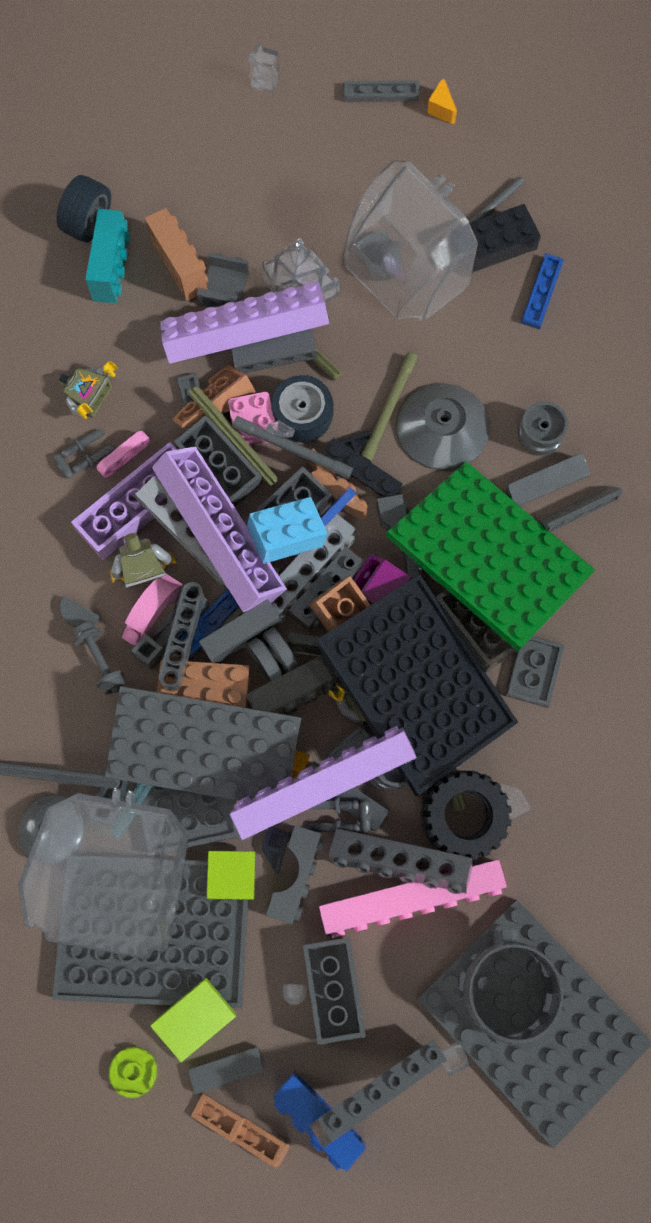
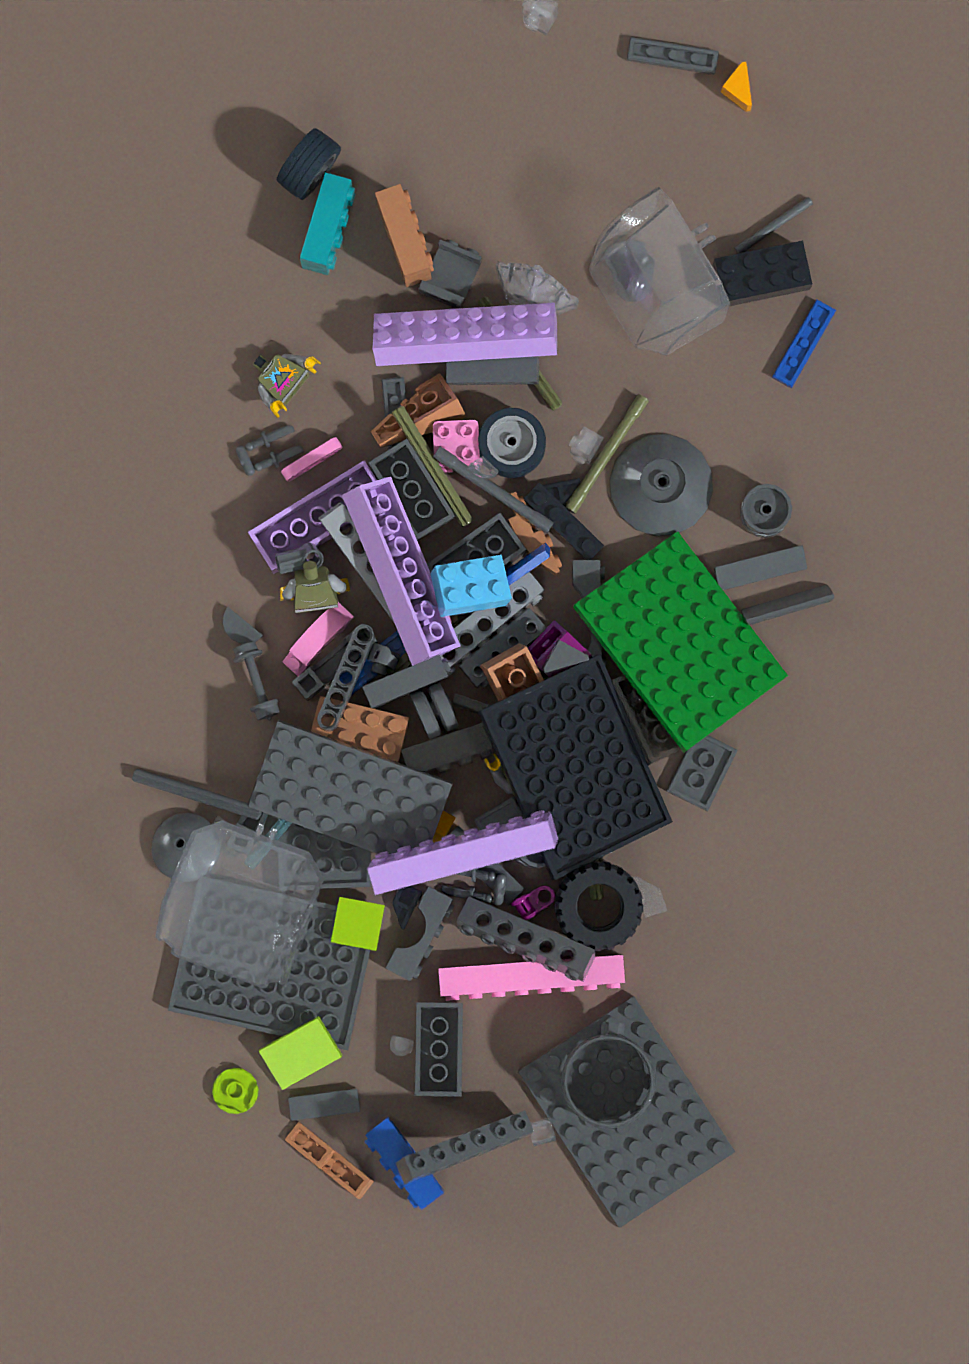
camera: 10 degrees right, 10 degrees up
(115, 537) = (294, 559): none -> dark grey piece
(216, 617) = (382, 659): none -> dark grey piece
(369, 402) = (585, 446): none -> clear brick
(386, 580) = (563, 656): none -> dark grey slope
(399, 824) = (532, 903): none -> magenta piece

